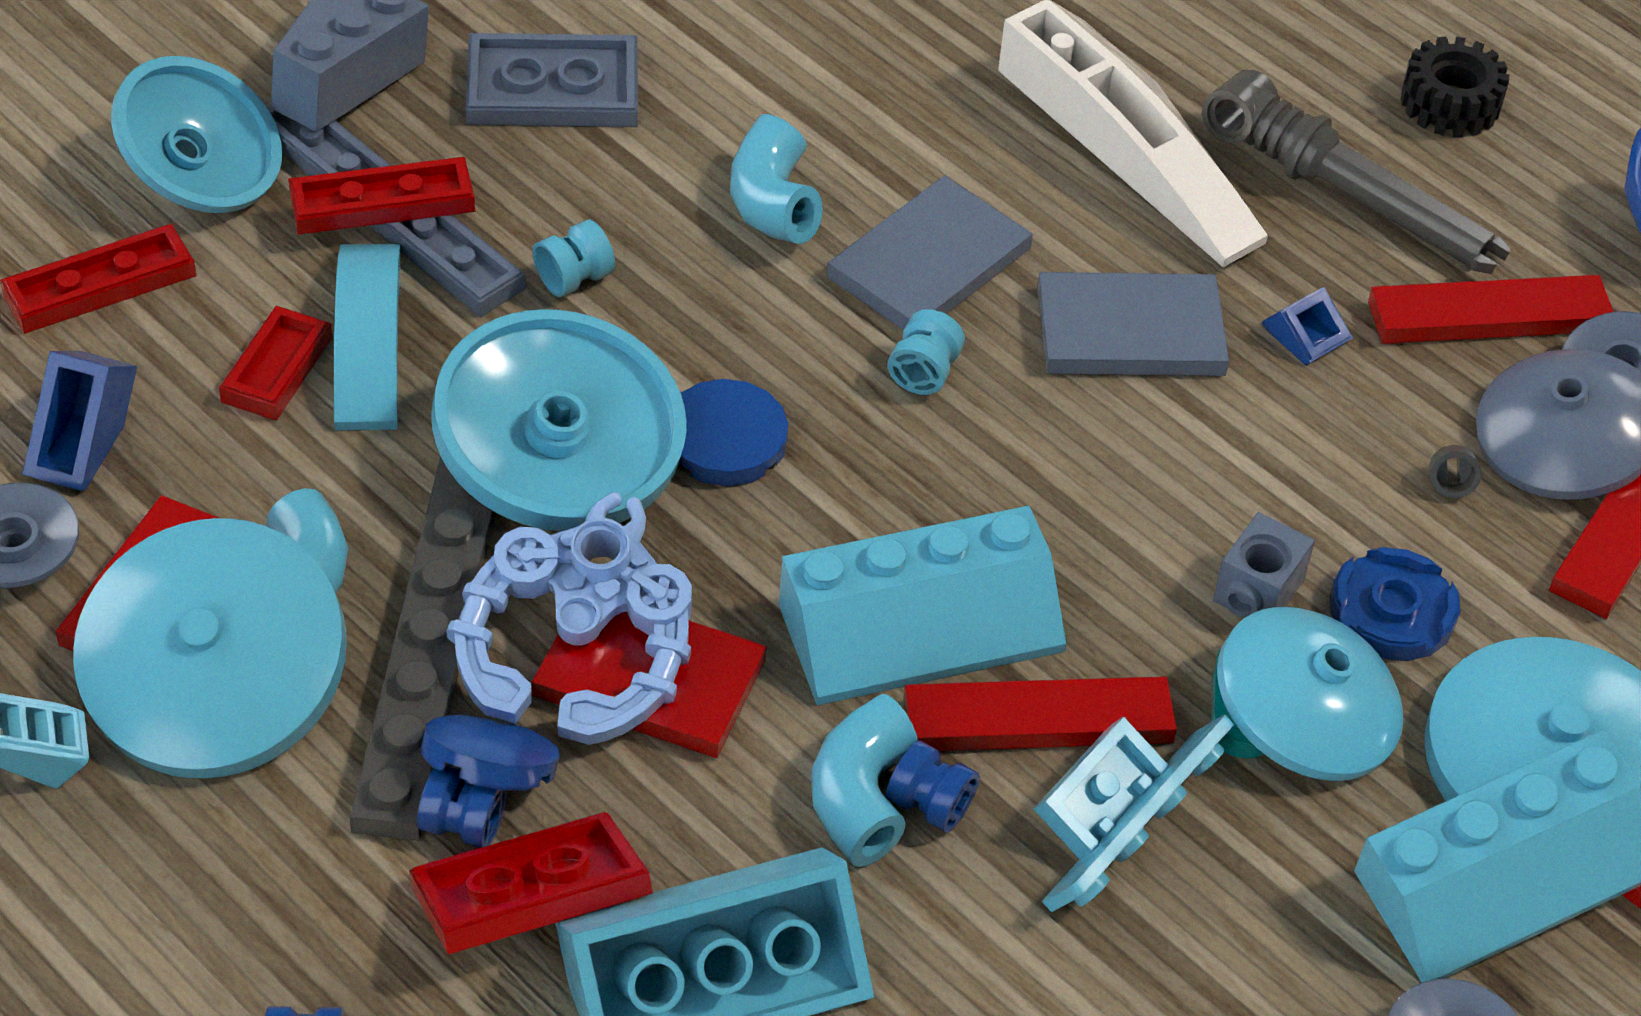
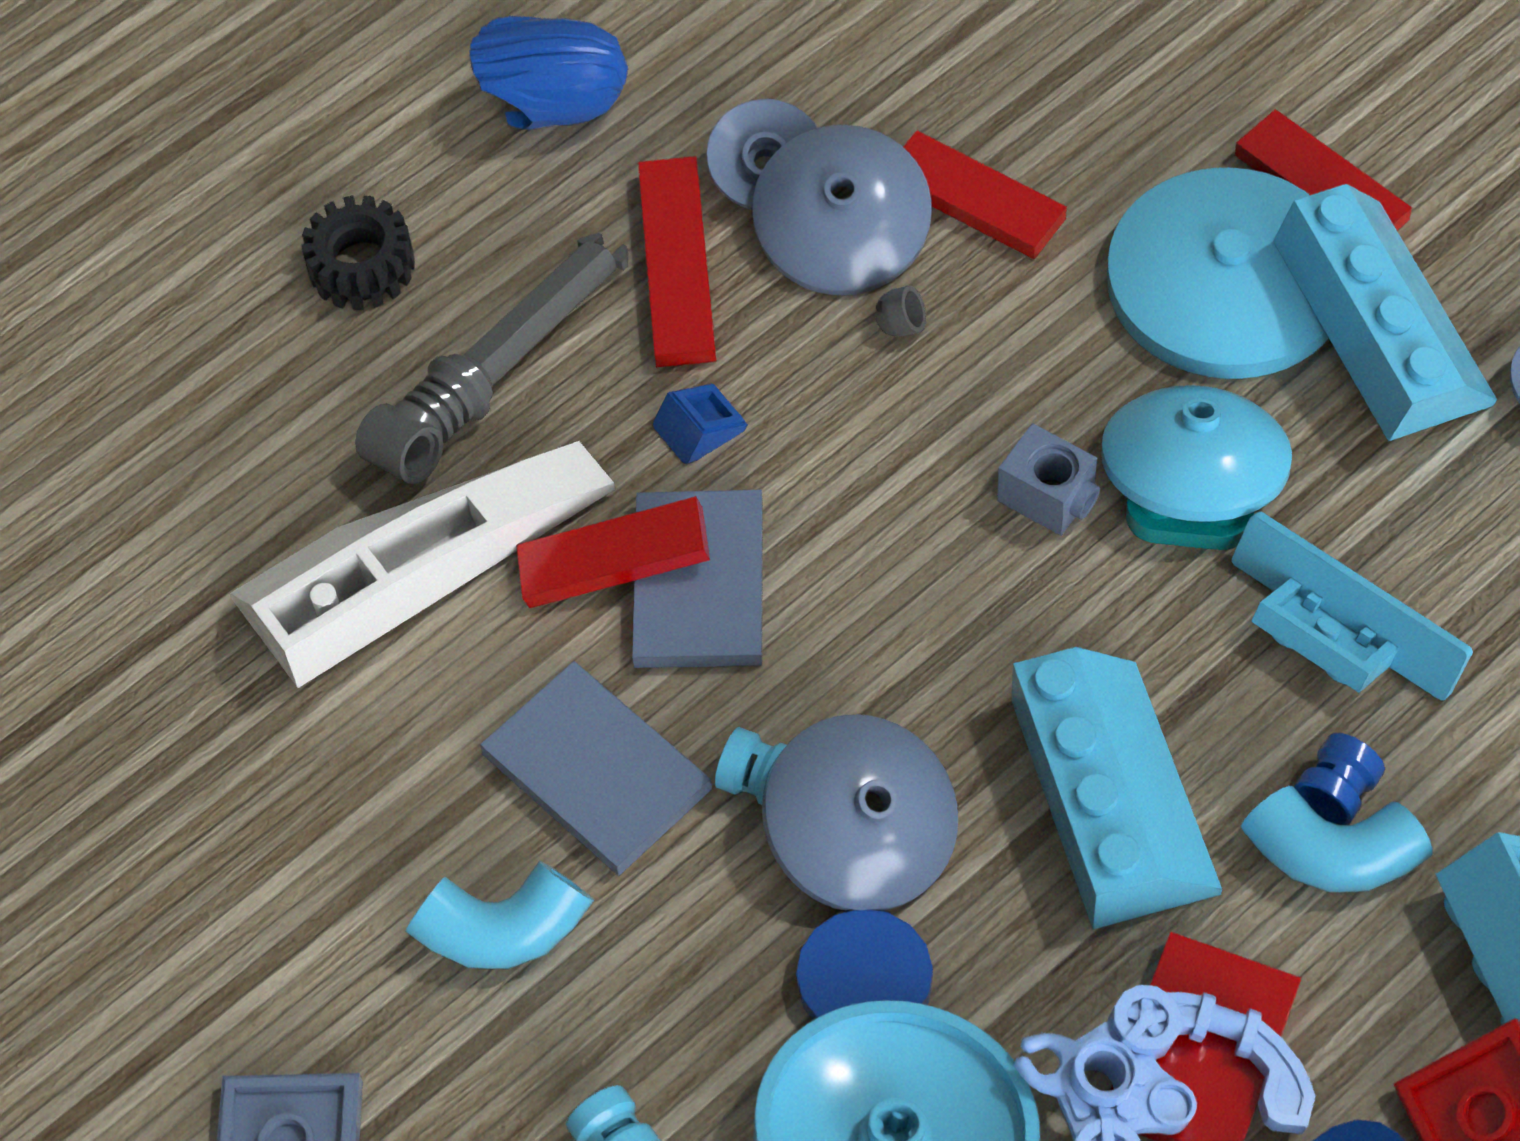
camera: 80 degrees left, 10 degrees up
(886, 448) = (831, 837): none -> sand blue dish
(1037, 712) = (1226, 690): red tile -> none
(1145, 254) = (613, 552): none -> red tile
(1396, 603) = (1064, 381): blue tile -> none

